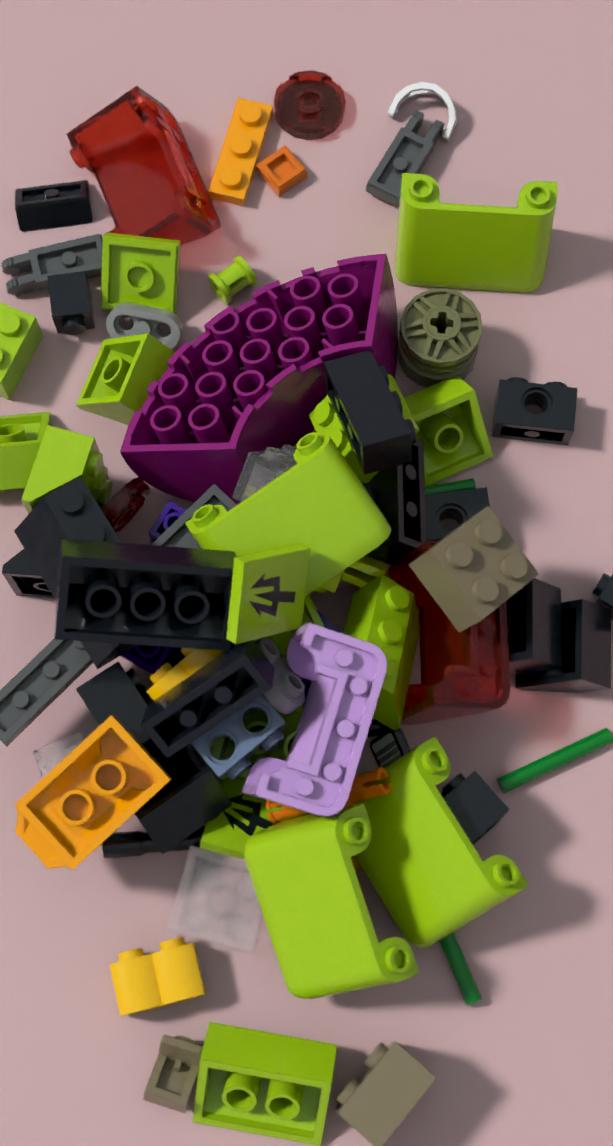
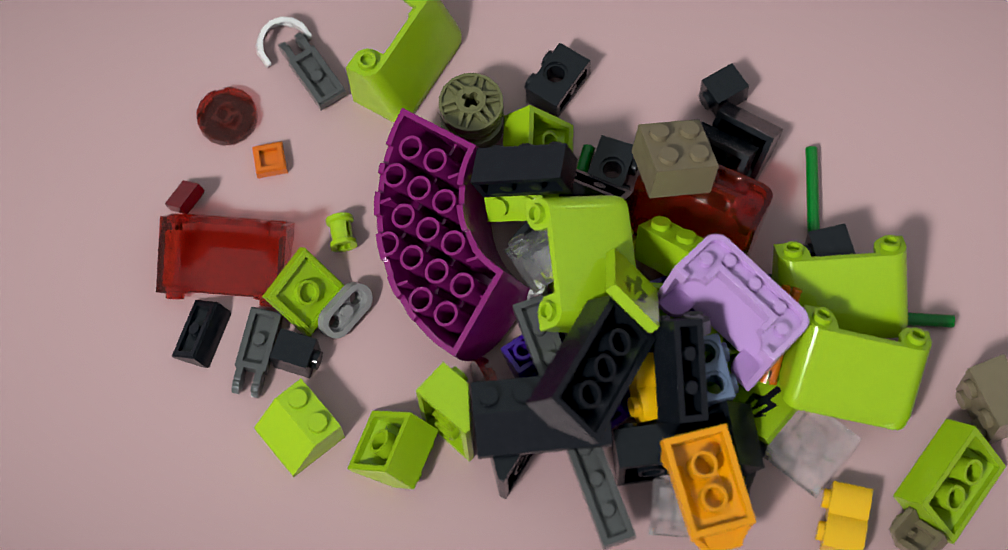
camera: 60 degrees left, 5 degrees down
(123, 375) = (381, 340): lime slope -> none
(191, 110) = (185, 197): none -> dark red tile
(240, 152) = (237, 180): light orange plate -> none

